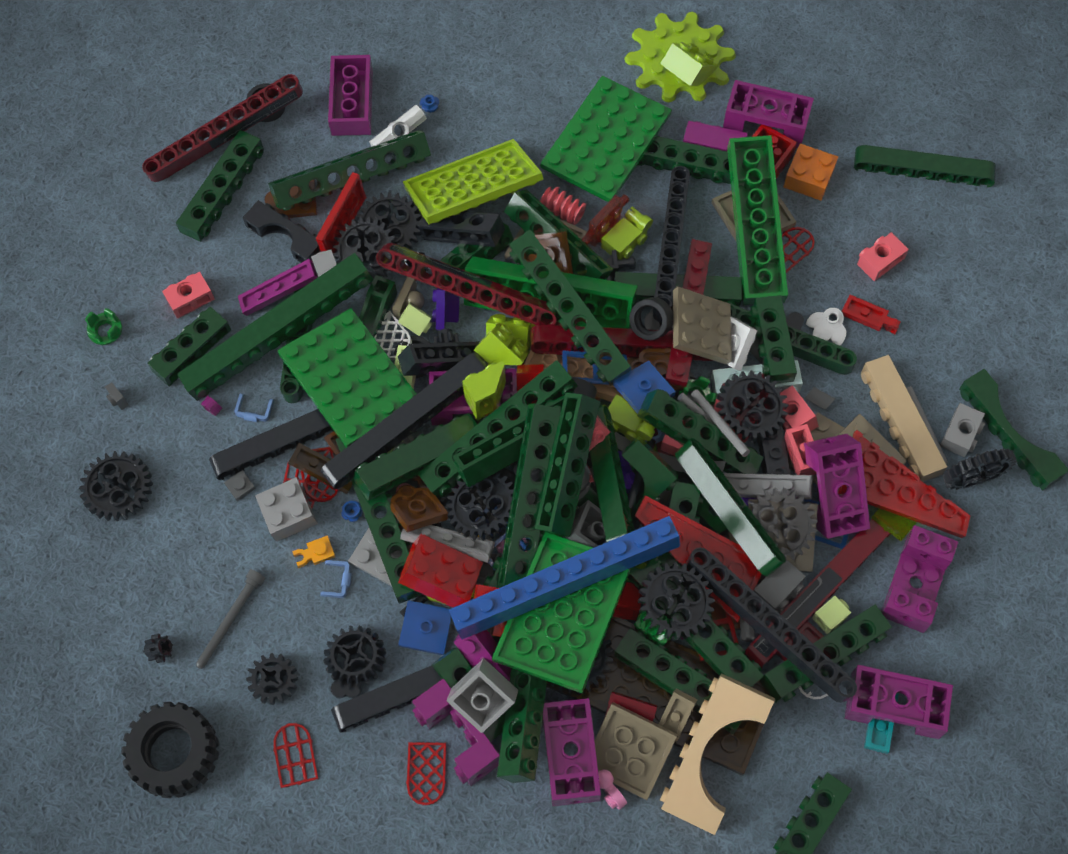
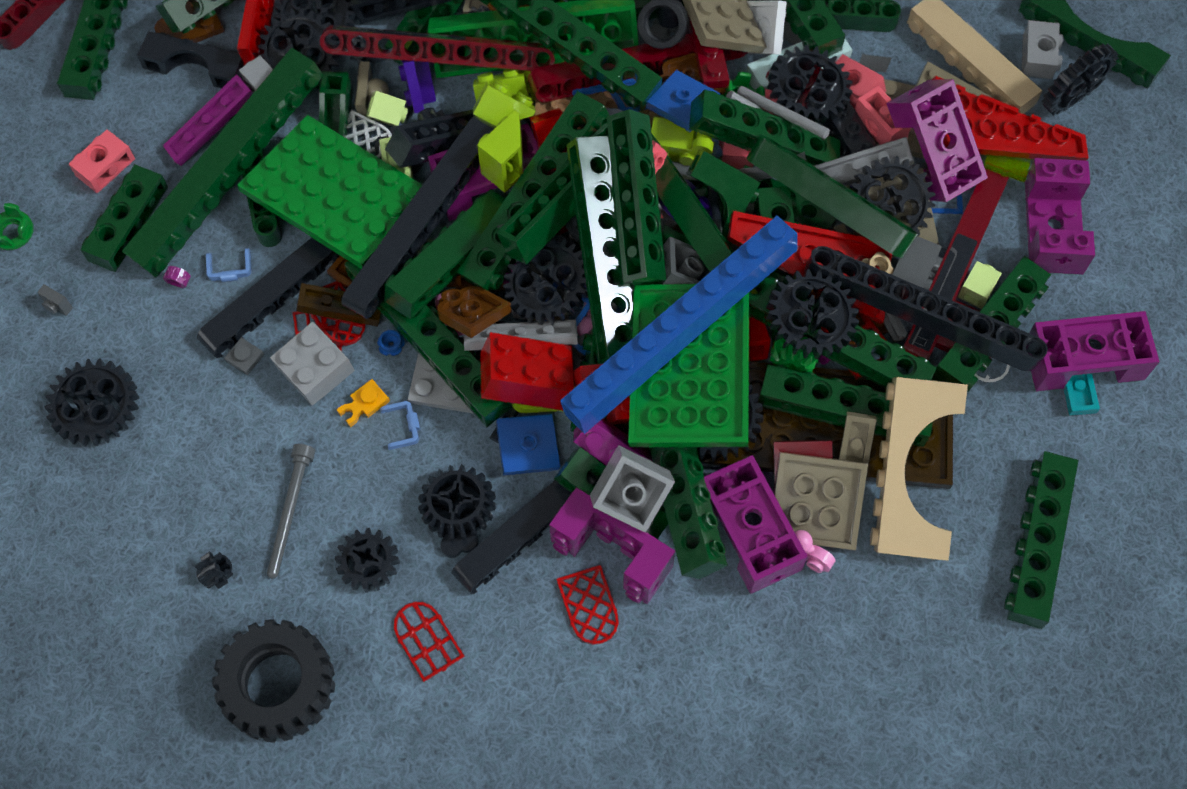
camera: 20 degrees left, 0 degrees up
(751, 572) = (880, 260): none -> tan plate

